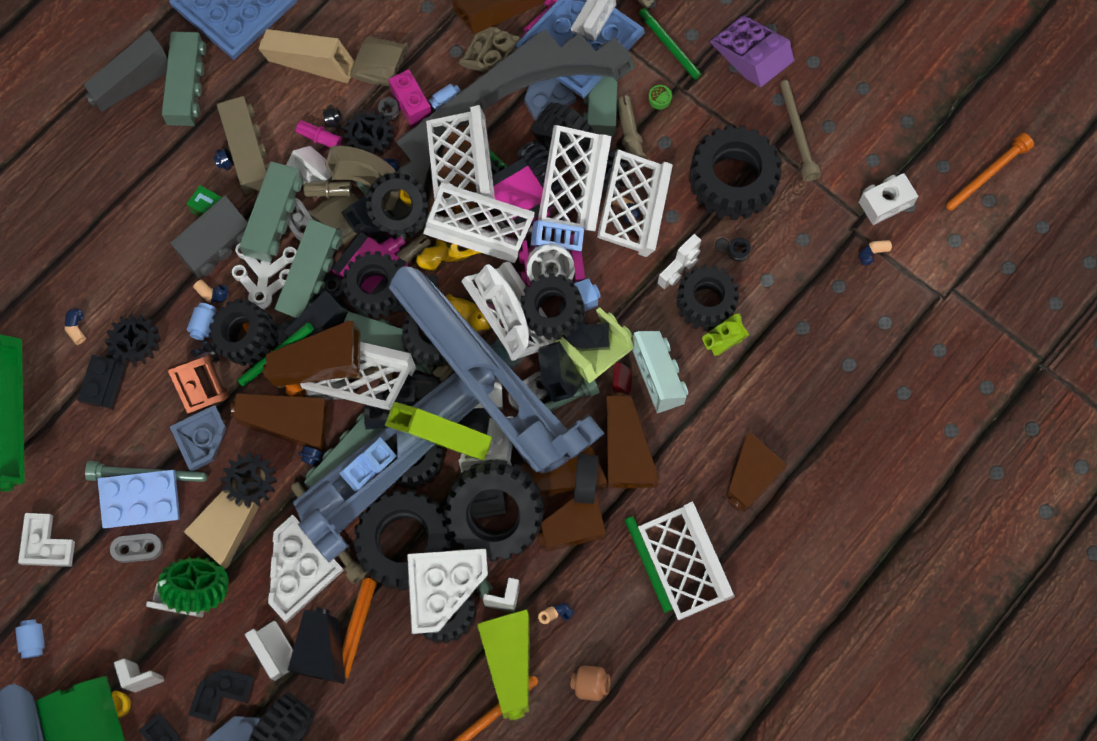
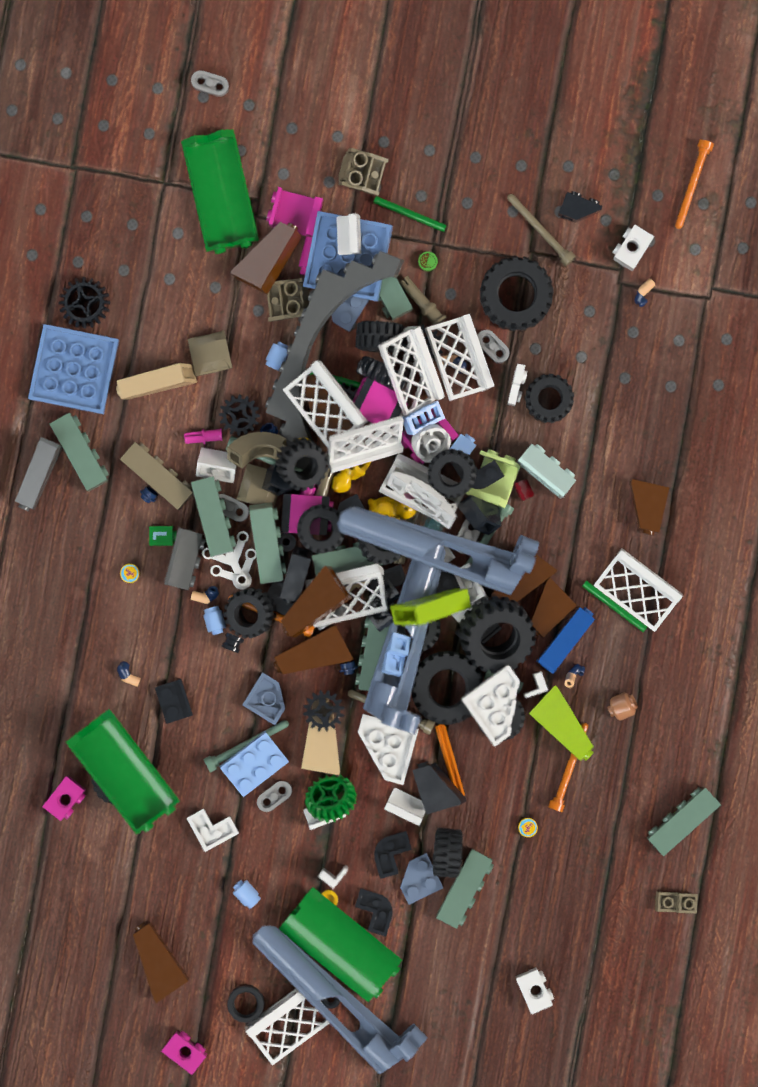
camera: 30 degrees left, 15 degrees up
(123, 336) = (169, 667): black gear -> none
(150, 225) = (129, 573): none -> tile
(191, 386) = (240, 670): plate -> none
(258, 368) = (278, 624): green bar -> none
(328, 189) = (239, 476): dark tan axle -> none
(332, 116) = (204, 416): black plate -> none
(393, 104) = (246, 386): dark grey bush -> none
(409, 98) = (252, 371): dark pink brick -> none
(569, 566) = (566, 639): none -> blue slope
(586, 479) = (545, 579): black tyre -> none
(627, 450) = (555, 537): reddish brown slope -> none
(678, 215) = (493, 346): none -> light grey plate
(725, 335) = (577, 419): lime hips -> none
(738, 242) = (547, 341): black bush -> none
(754, 50) = (473, 184): medium lavender slope -> none
(850, 129) = (577, 208): none -> black slope

